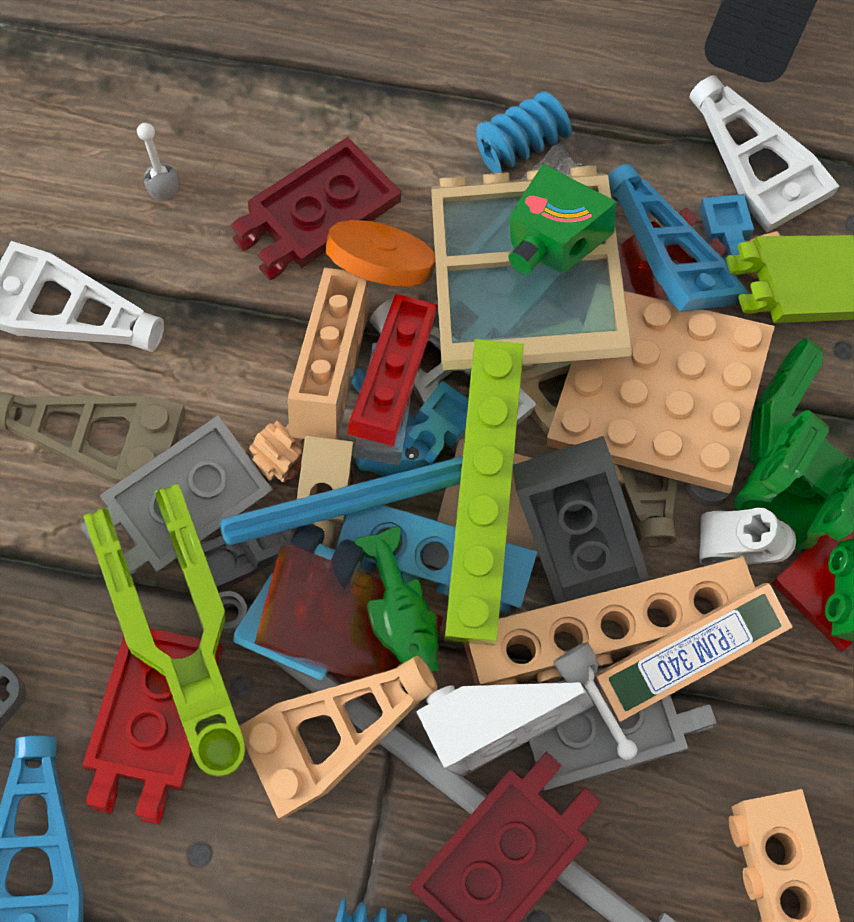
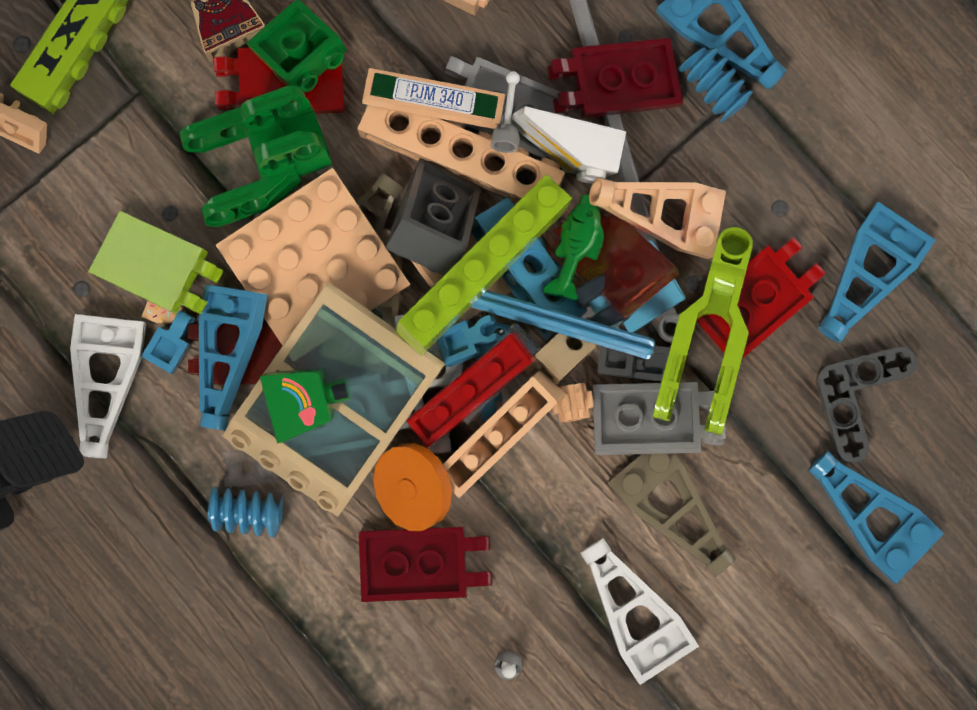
camera: 140 degrees left, 15 degrees up
(745, 533) = (347, 143): white piece -> none

